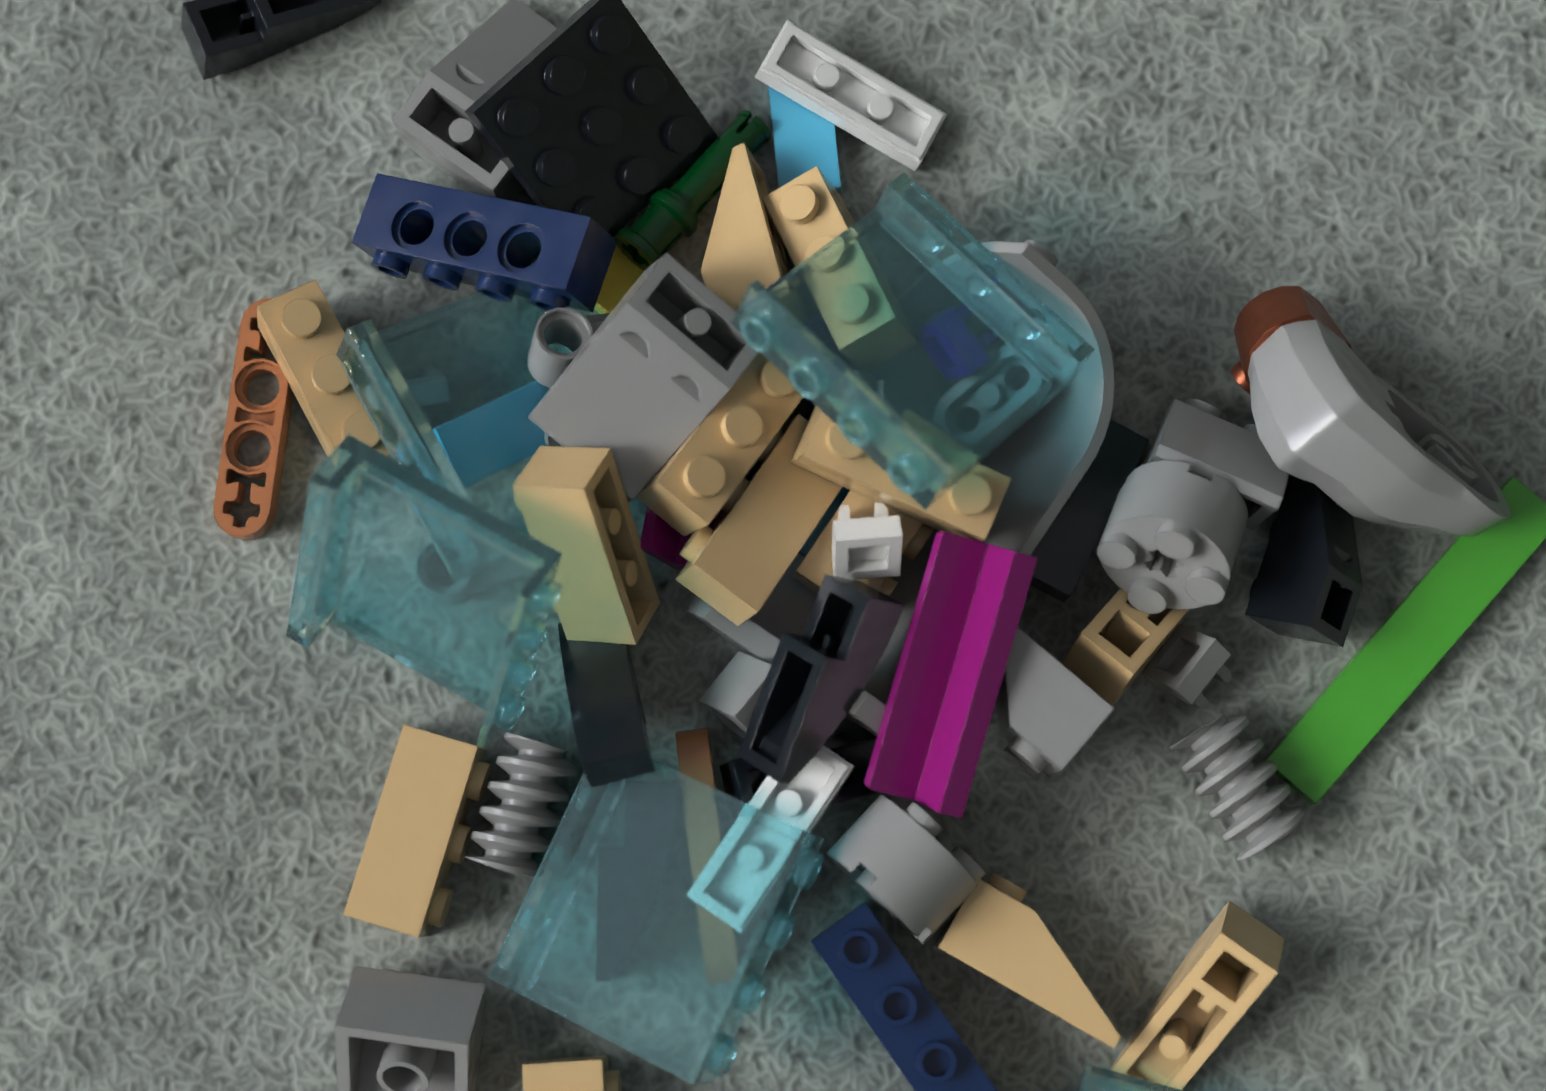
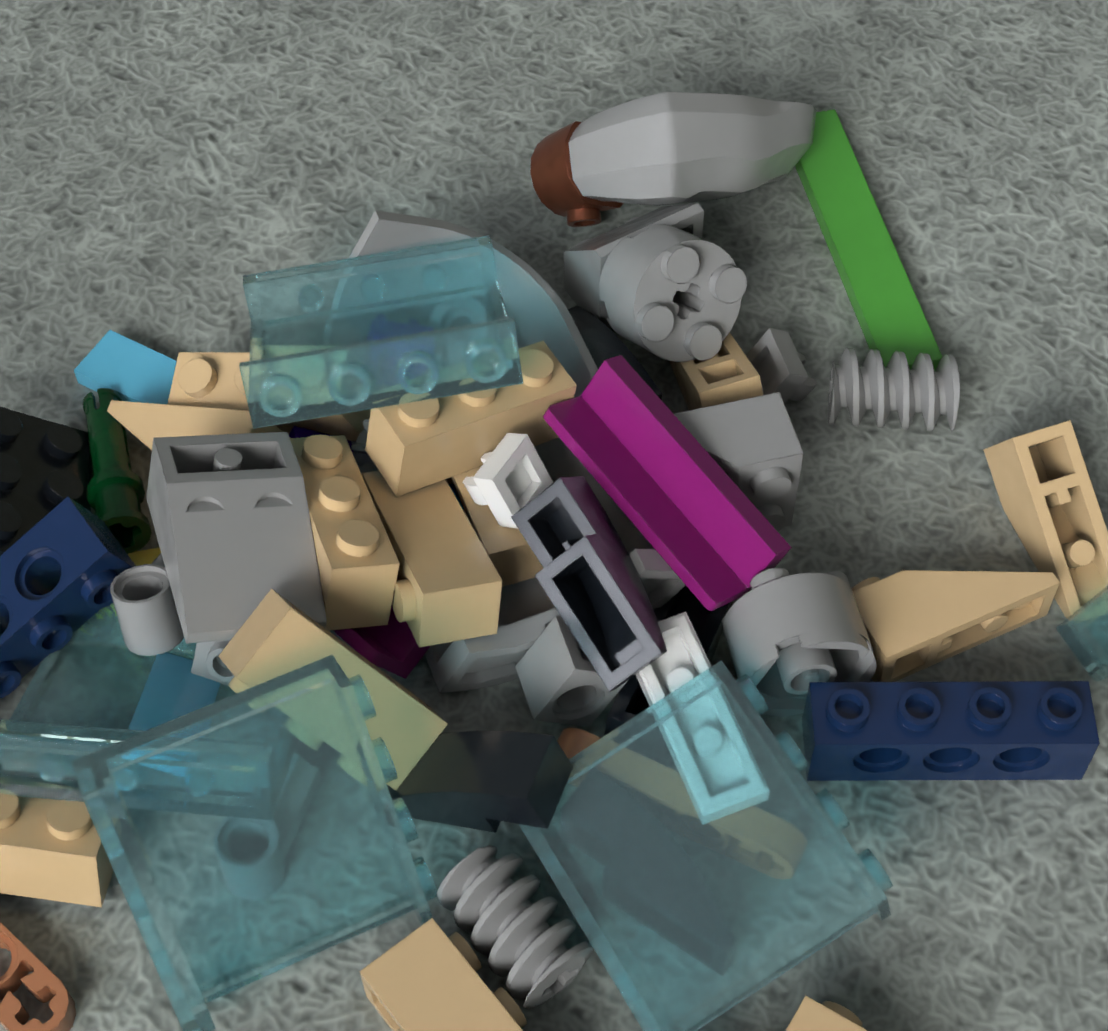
camera: 60 degrees left, 25 degrees down
(850, 95) = (143, 325): white tile -> none
(1308, 569) = (775, 257): black slope -> none

